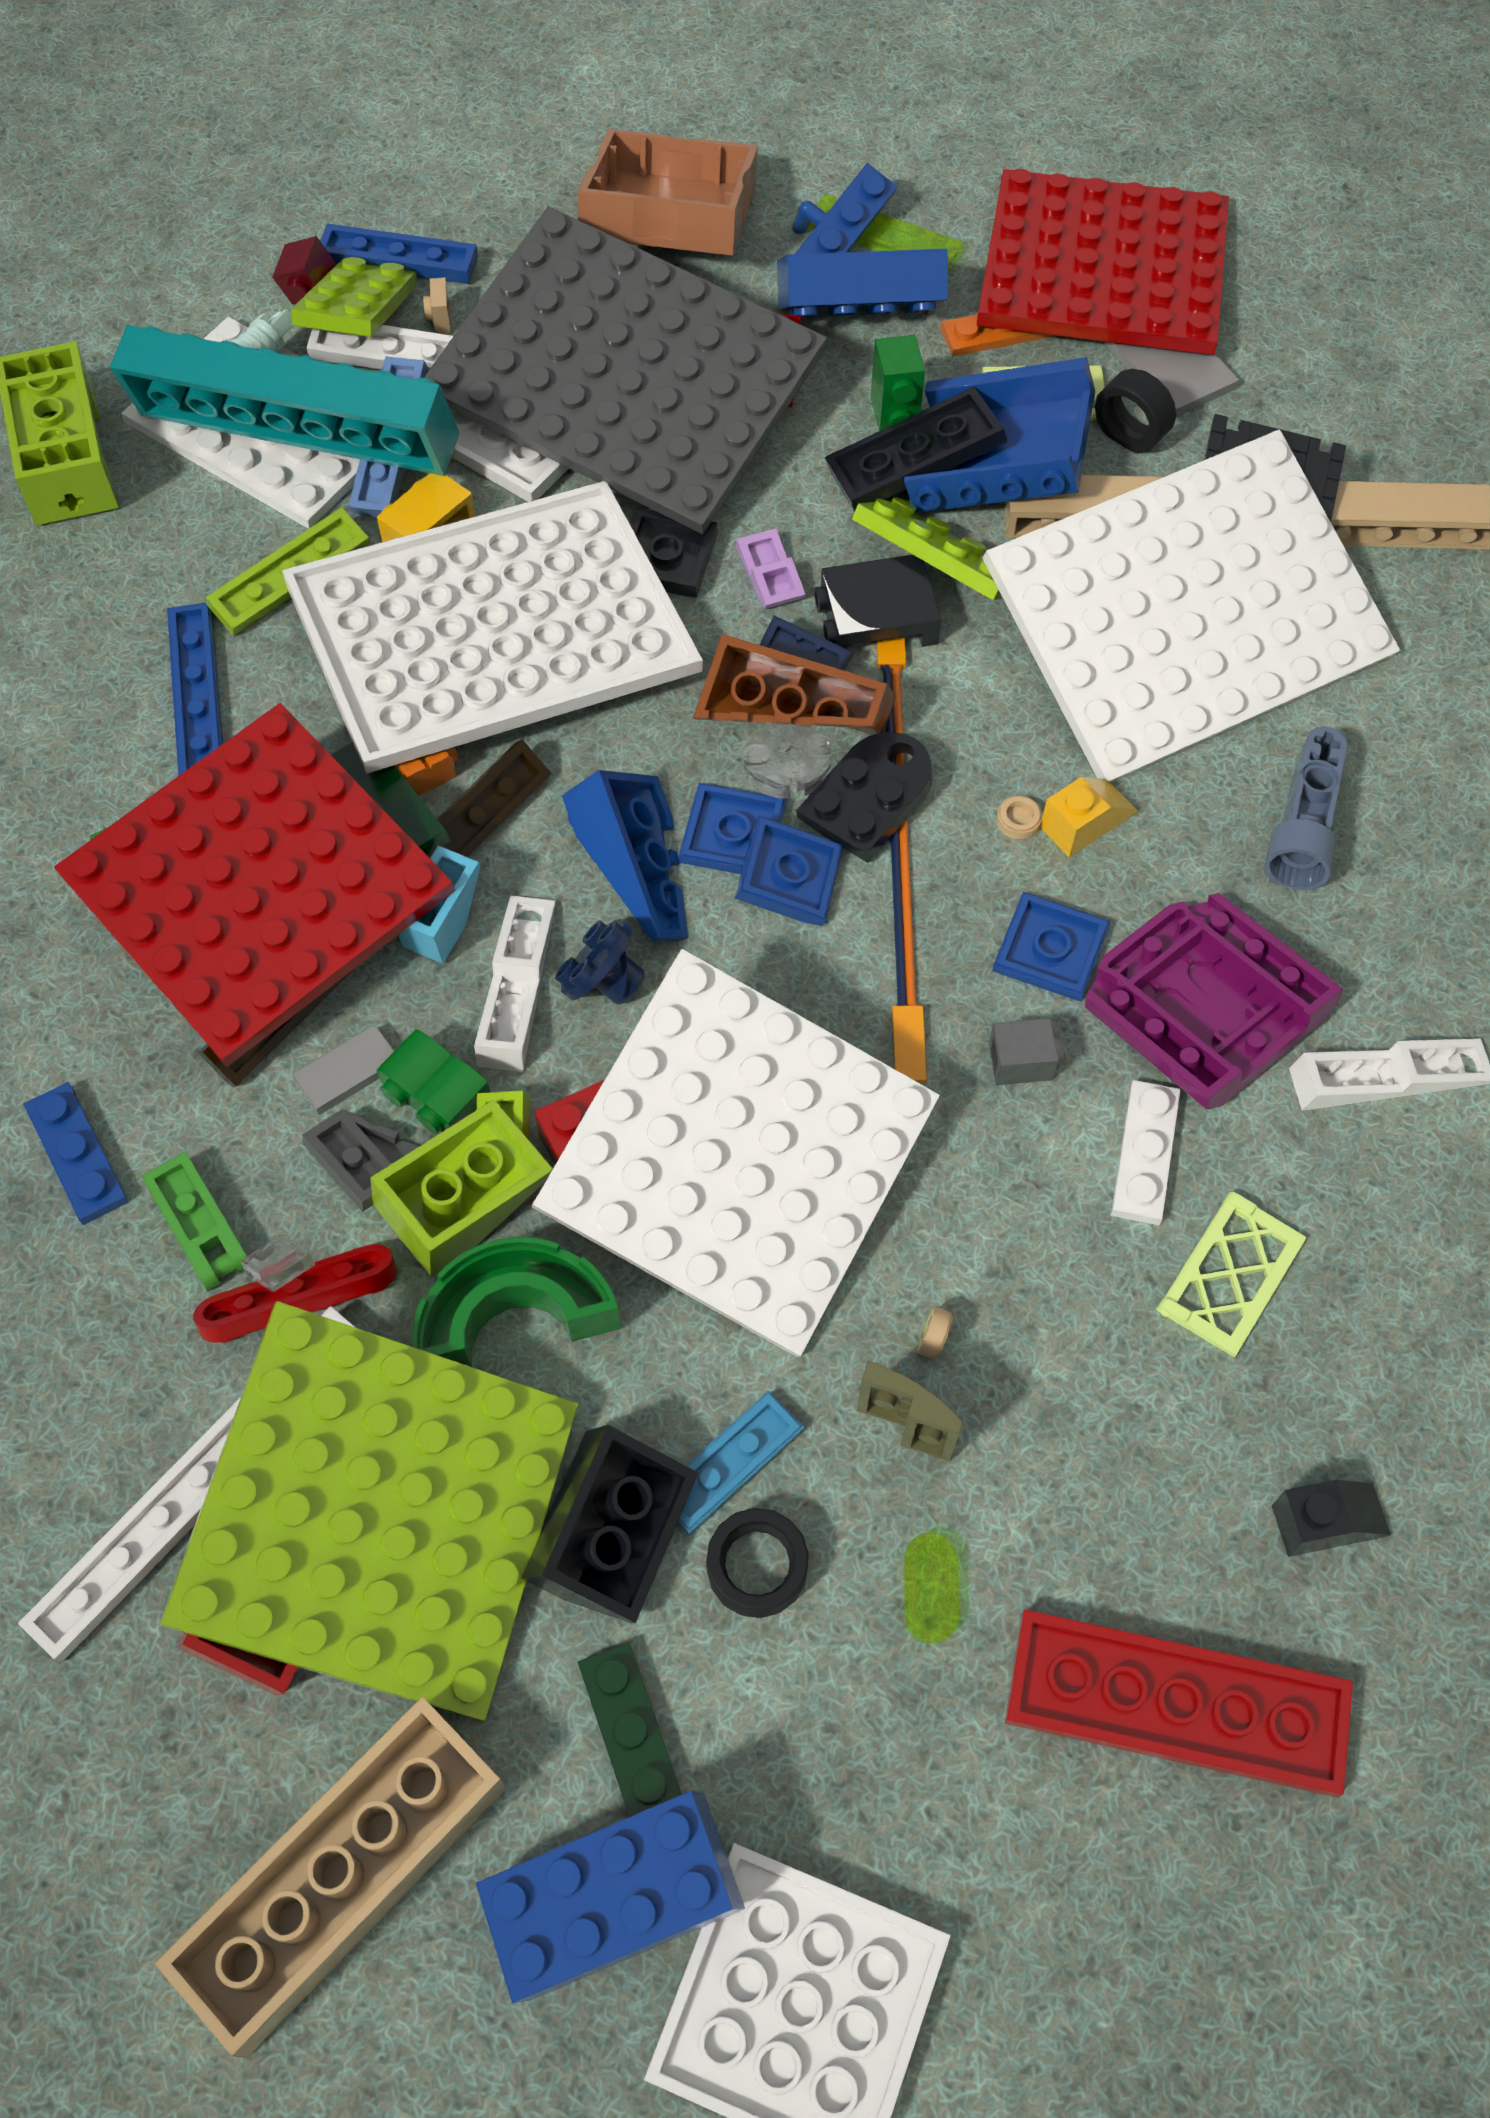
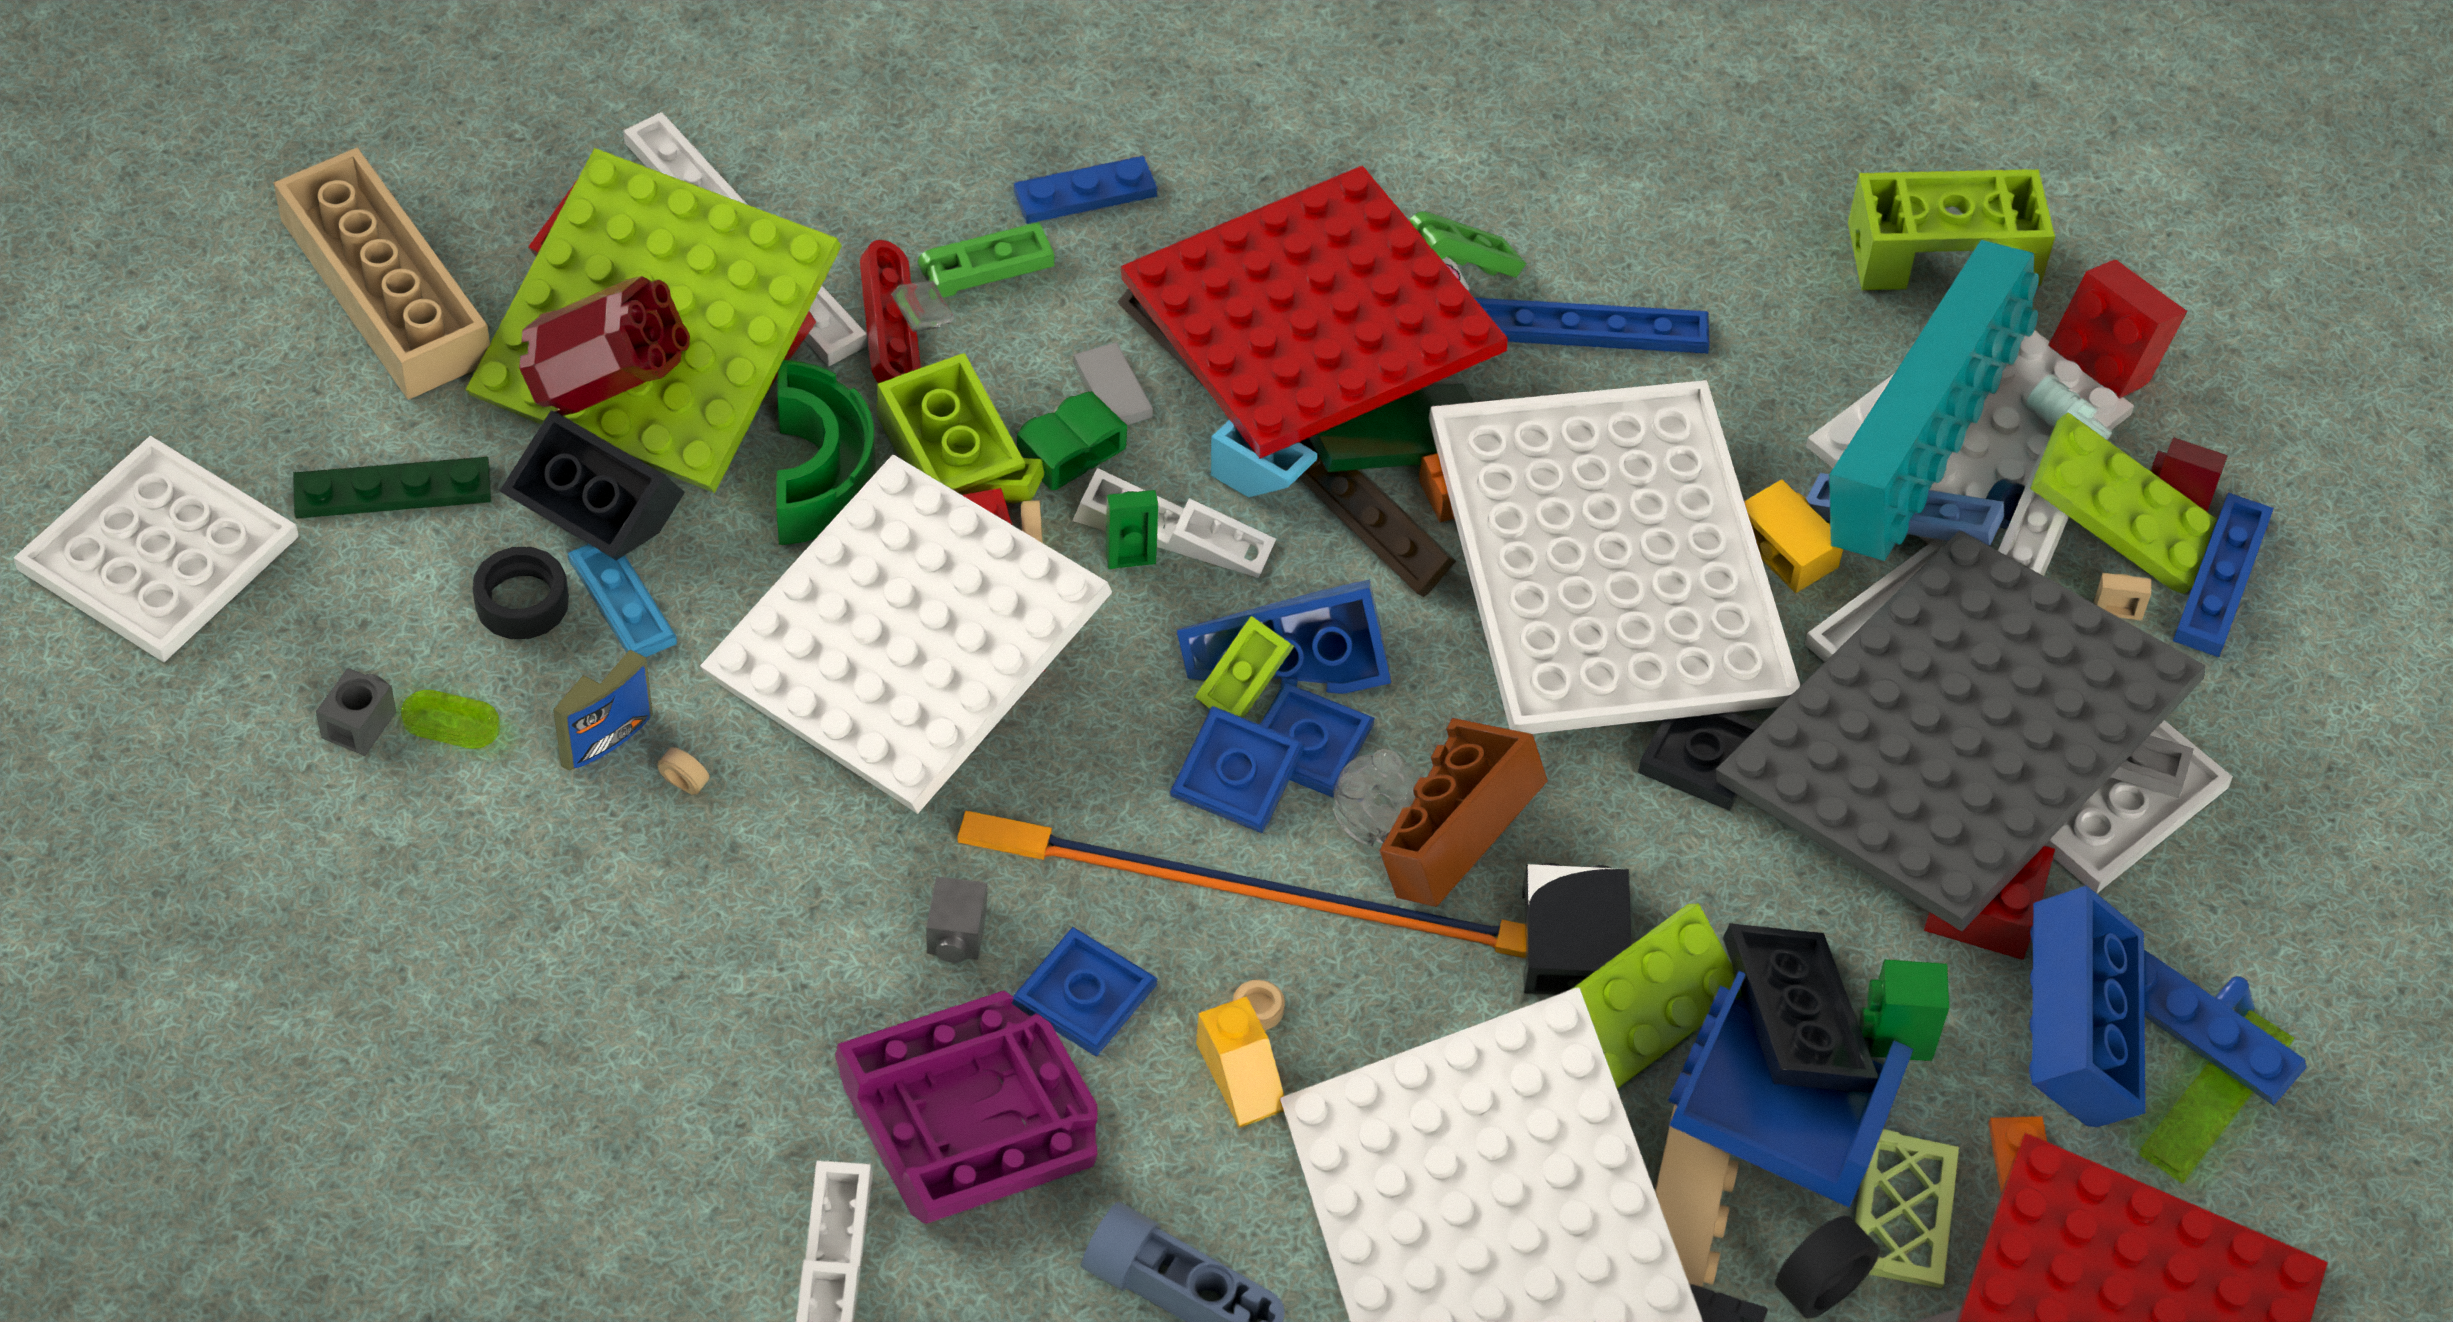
camera: 100 degrees right, 10 degrees down
(130, 780) = (1468, 244): none -> bright green plate
(161, 295) = (2117, 328): none -> red brick
(263, 584) = (1741, 413): lime plate -> none
(354, 1152) = (1019, 378): dark grey wing -> none
(462, 1526) = (603, 345): none -> dark red brick
(548, 1090) = (1031, 519): none -> tan tile
(551, 992) = (1131, 529): none -> green plate
(602, 965) = (1157, 585): dark blue plate -> none
(609, 1896) = (286, 428): blue brick -> none
(670, 191) = (2276, 839): nougat tile -> none
(688, 877) = (1244, 669): none -> lime plate
(770, 569) = (1662, 849): lavender slope -> none
(801, 643) = (1525, 841): dark blue plate -> none
(868, 795) = (1316, 863): black plate -> none
(984, 1670) = (356, 711): none -> dark grey brick
(1145, 1152) = (810, 1002): white plate -> none
(1181, 1703) = (271, 872): red plate -> none
(1249, 1310) = (648, 1082): yellowish green window -> none
(1329, 1516) = (383, 1037): black slope -> none

